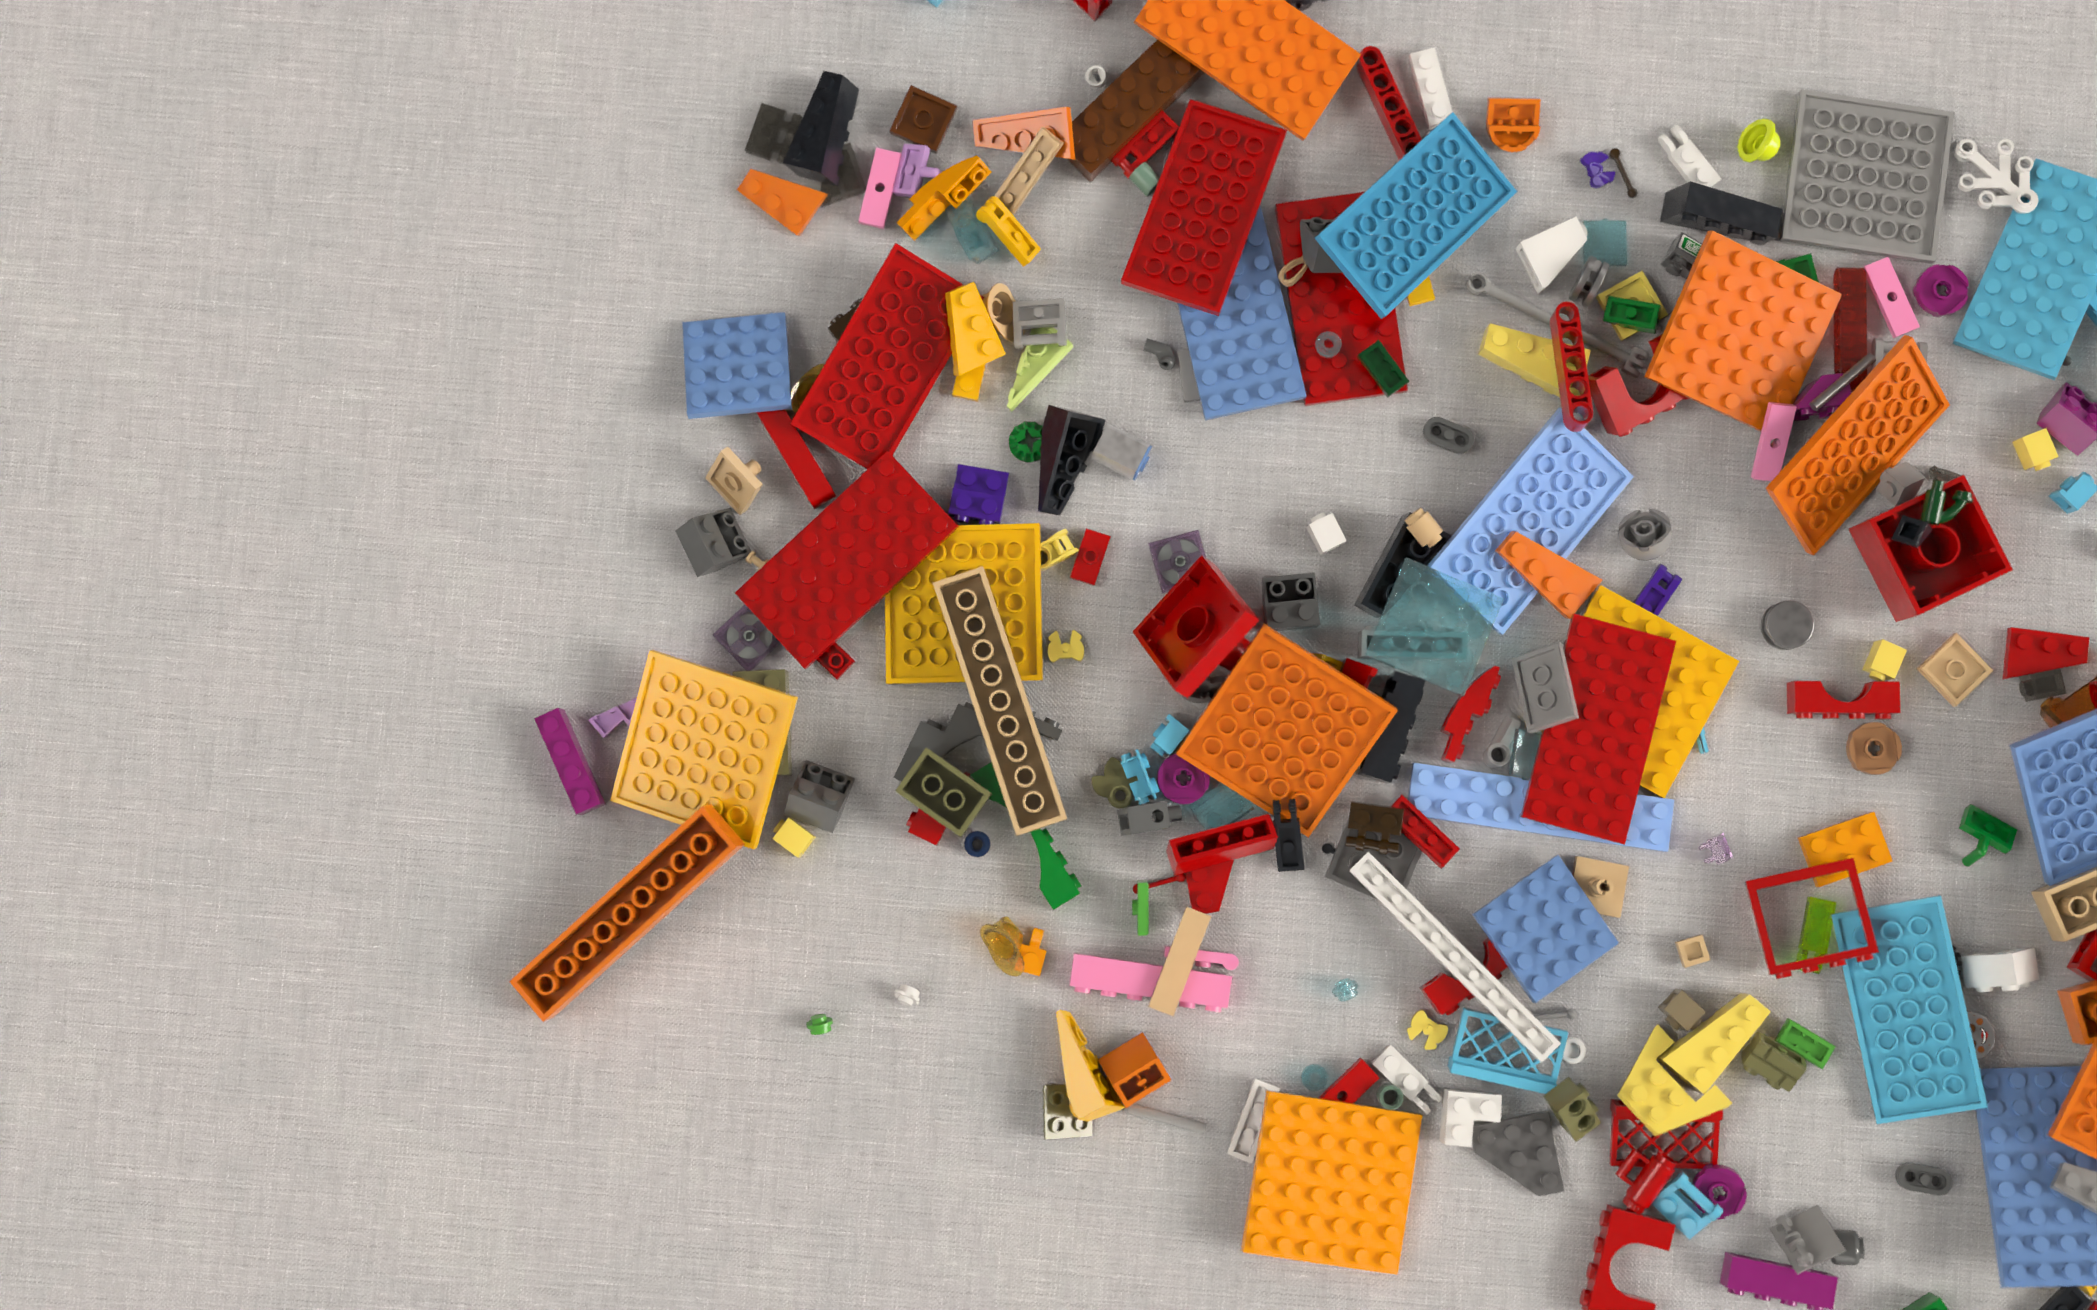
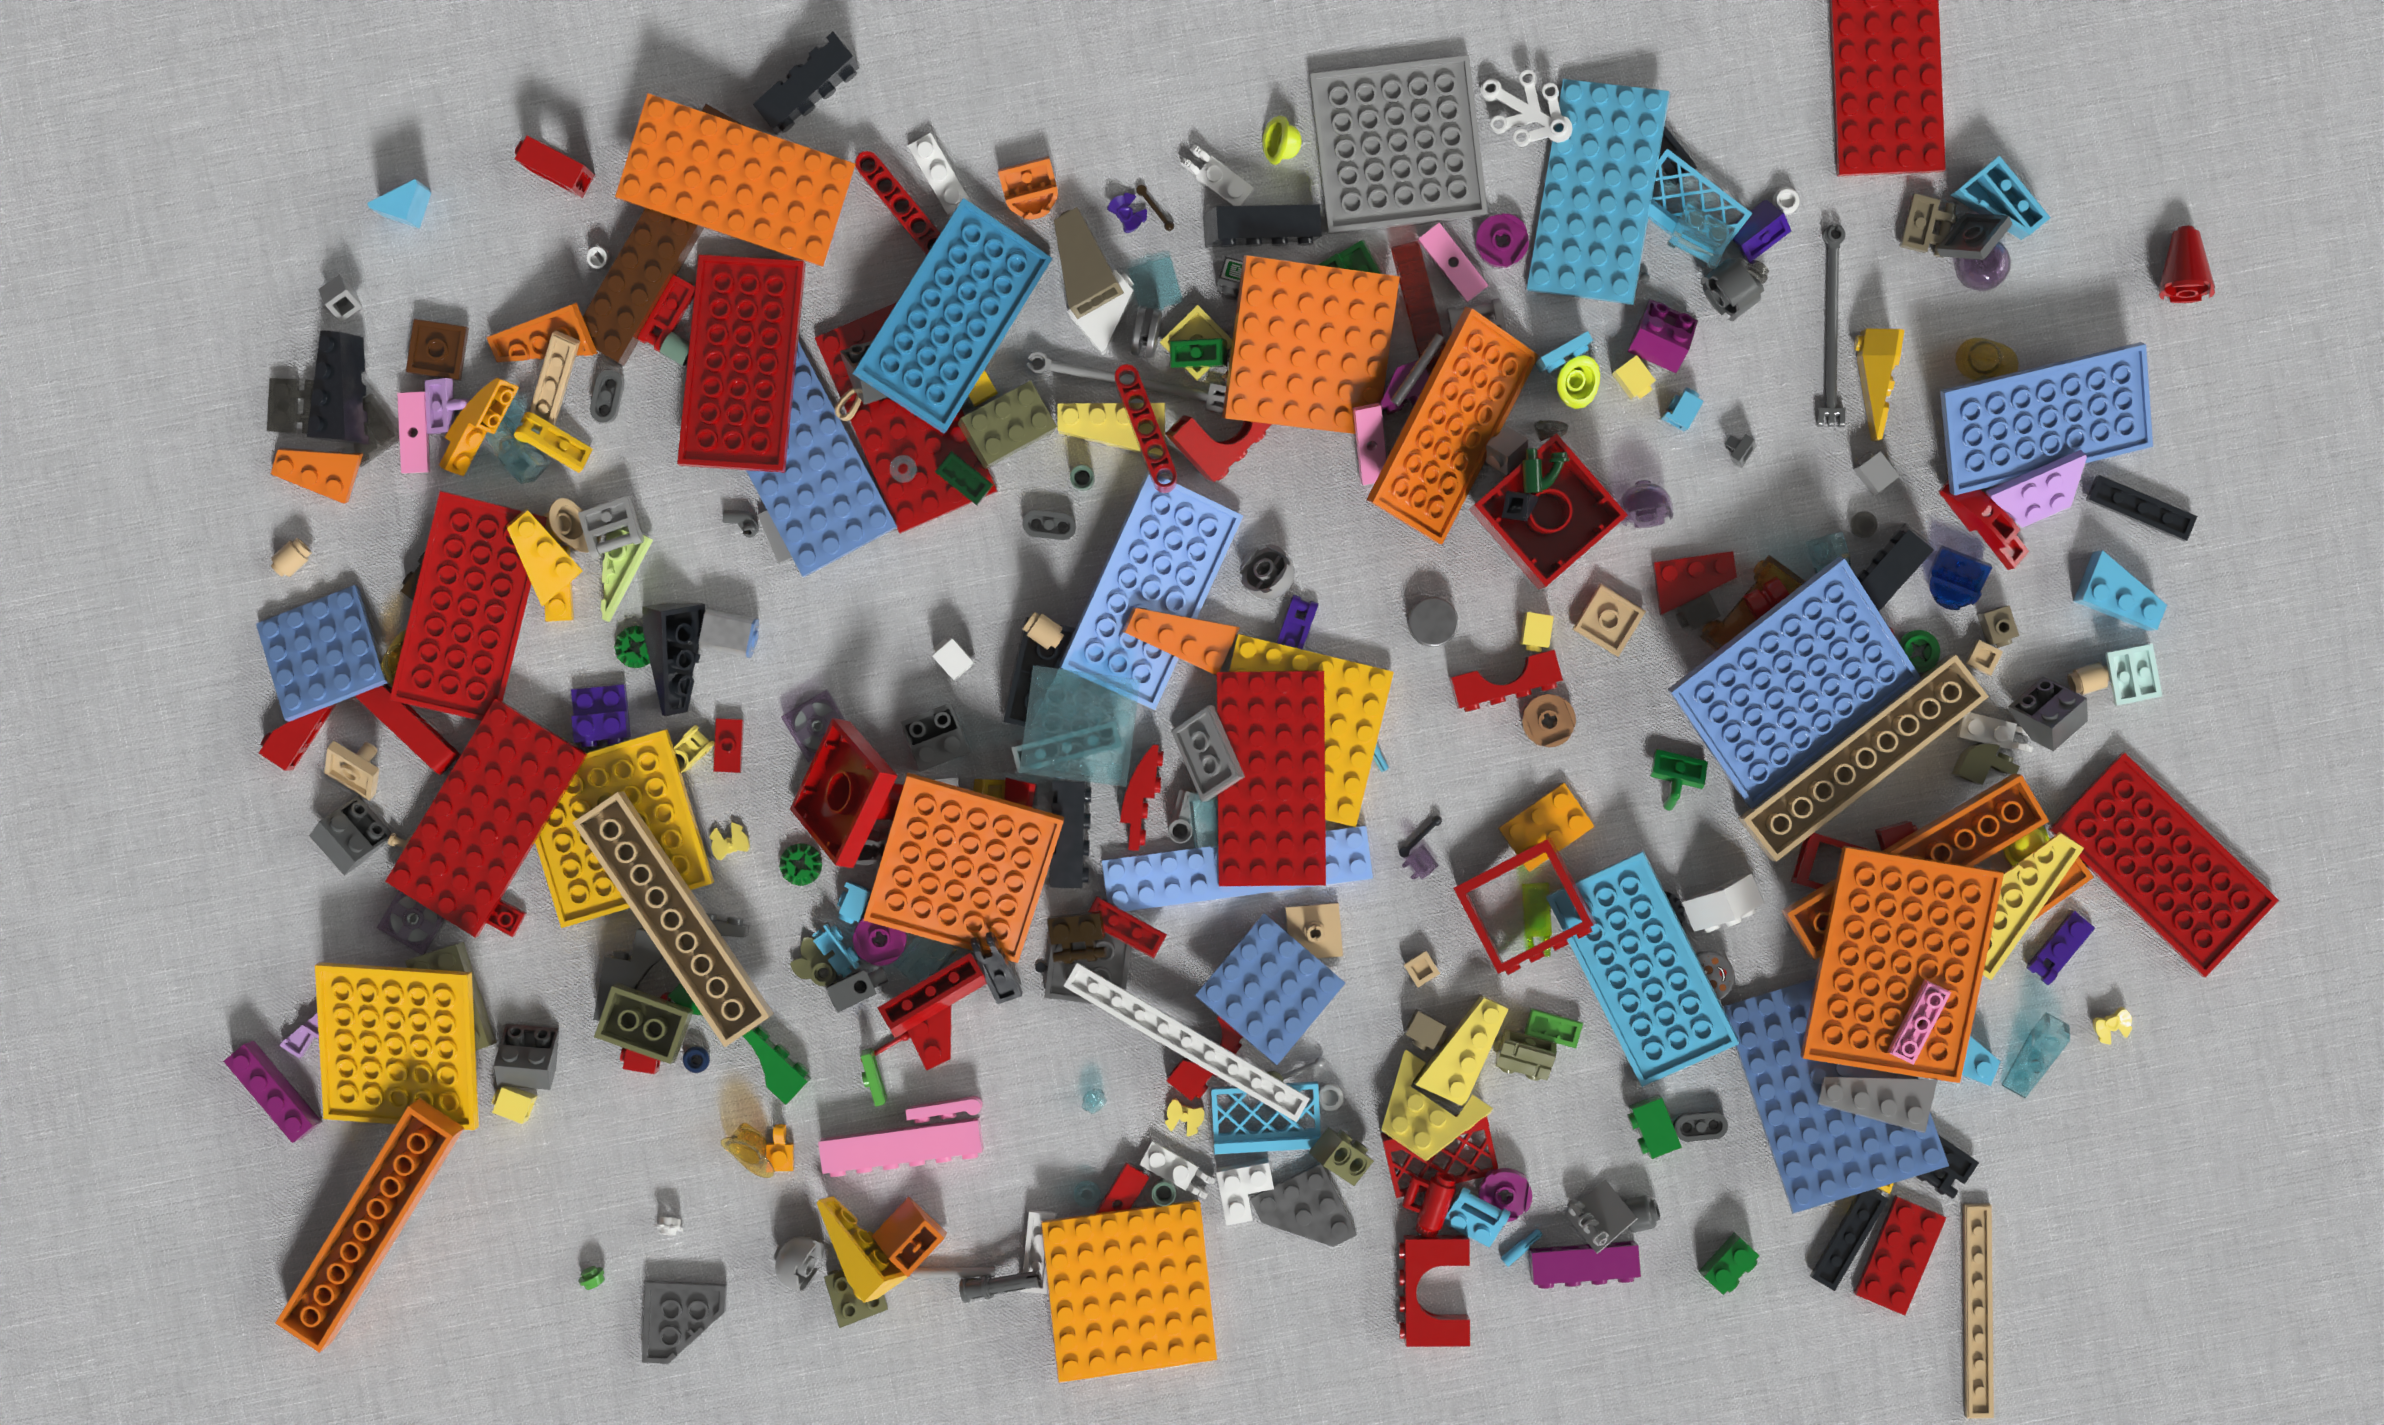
camera: 20 degrees left, 5 degrees up
(687, 436) = (290, 741): none -> red slope
(733, 270) = (290, 557): none -> tan brick
(849, 47) = (340, 298): none -> light grey brick
(891, 1085) = (677, 1315): none -> flat silver plate
(1021, 1063) = (796, 1262): none -> light grey cylinder
(1068, 205) = (604, 396): none -> dark grey plate
(1114, 688) = (811, 858): none -> green gear
(1179, 961) = (921, 1121): tan tile -> none
(1196, 1140) = (988, 1286): none -> dark grey pin
(1436, 331) = (1007, 425): none -> olive brick
(1496, 392) = (1082, 487): none -> sand green beam
(1551, 205) = (1085, 270): none -> dark tan slope
(1703, 835) = (1404, 851): none -> black hinge
(1718, 1249) = (1521, 1247): none -> medium azure piece
(1880, 1166) = (1654, 1127): none -> green brick
(1980, 407) = (1571, 349): none -> medium azure plate
(1983, 437) = (1578, 381): none -> neon yellow hat
(2027, 572) = (1646, 505): none -> clear purple cylinder

